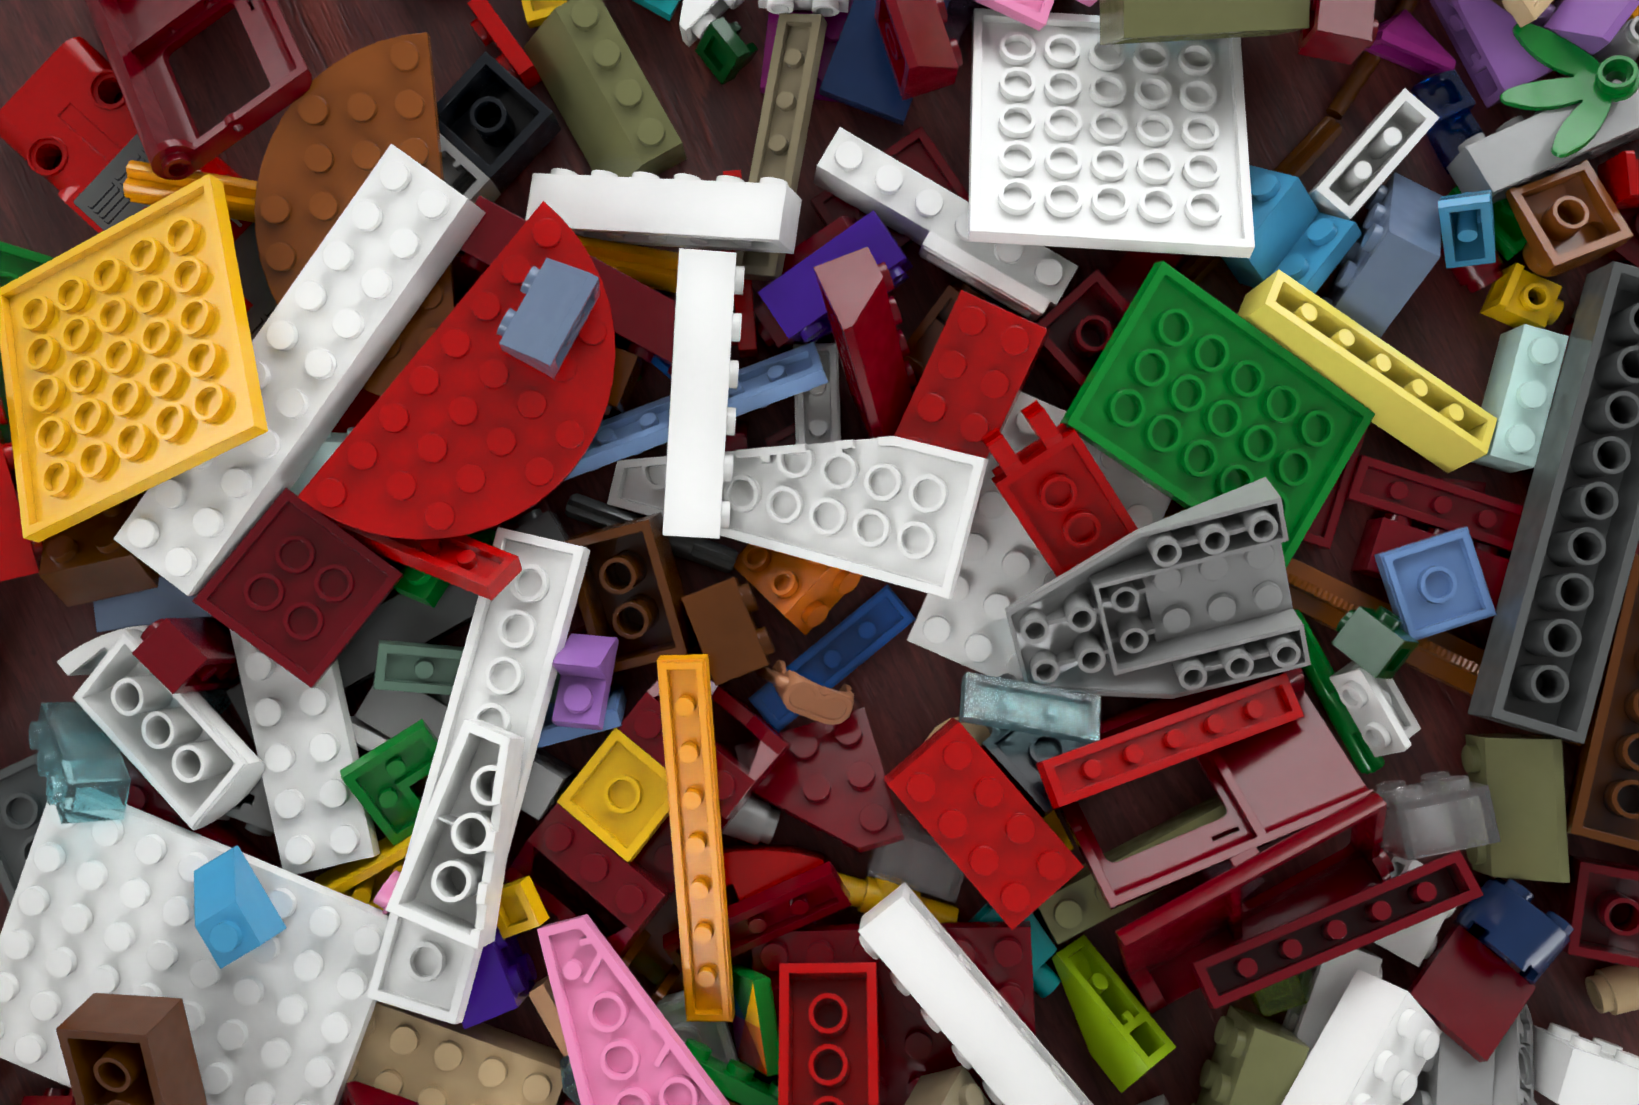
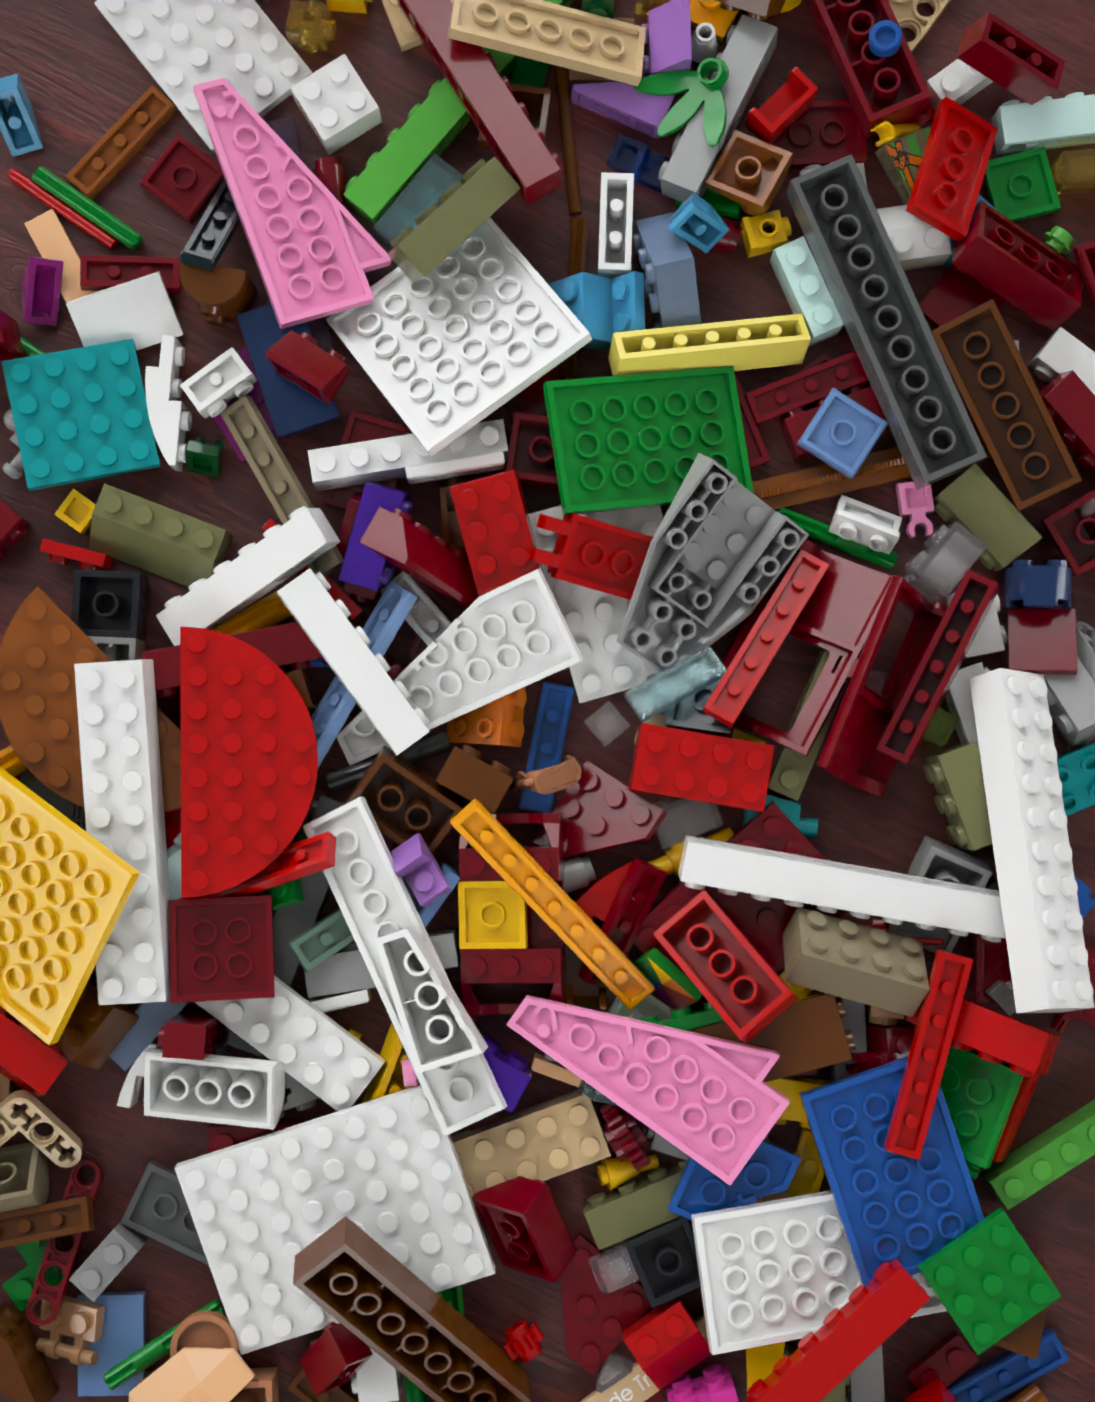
camera: 35 degrees left, 0 degrees up
(80, 765) = (179, 1146): clear light blue brick -> none
(232, 908) = (331, 1148): dark azure slope -> none
(385, 779) = (354, 1012): green plate -> none
(520, 908) = (488, 1022): yellow plate -> none
(549, 315) = (237, 686): sand blue slope -> none
(918, 687) = (606, 724): none -> clear brick
(1111, 1019) = (865, 818): lime slope -> none
(1374, 640) = (833, 492): brick -> none
(1410, 45) = (584, 141): magenta slope -> none
(1447, 726) = (915, 505): none -> bright pink plate

